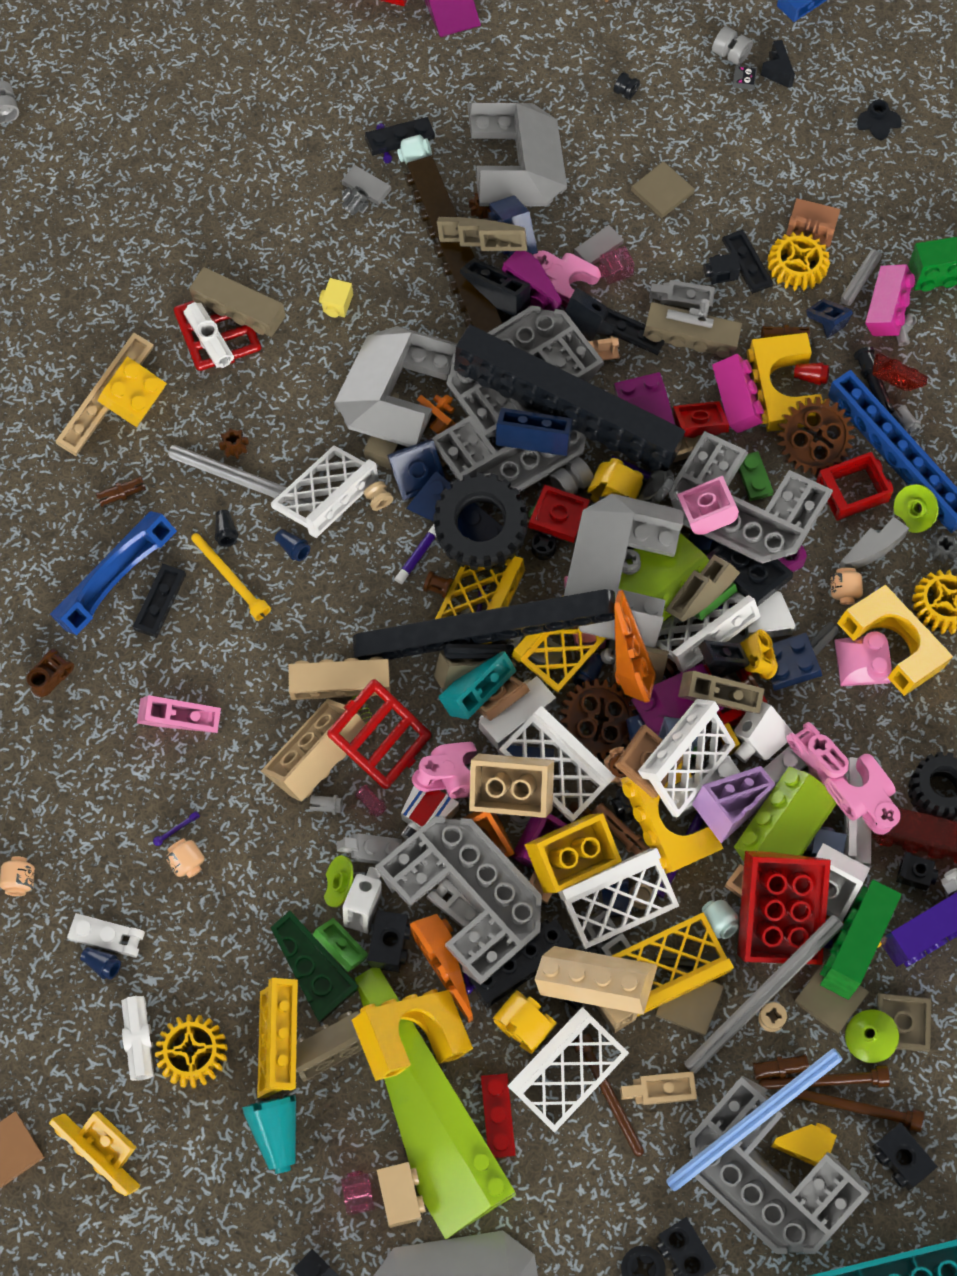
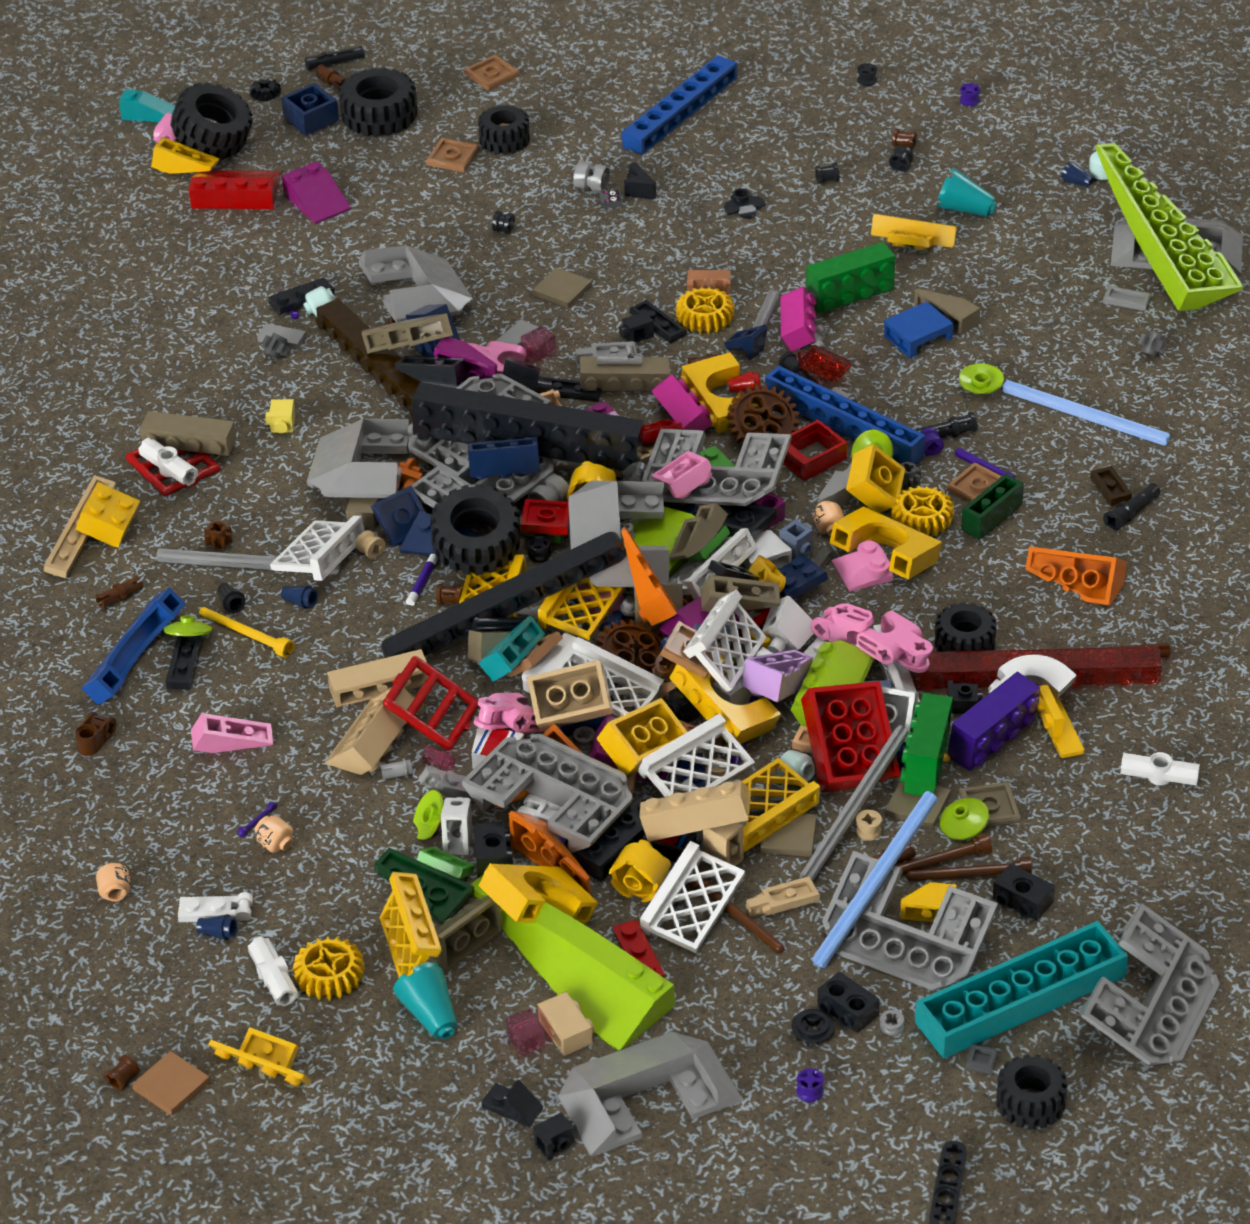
camera: 15 degrees left, 25 degrees down
(172, 562) = (187, 627): none -> lime dish
(805, 611) = (798, 538): none -> sand blue brick
(907, 555) = (875, 479): none -> yellow brick

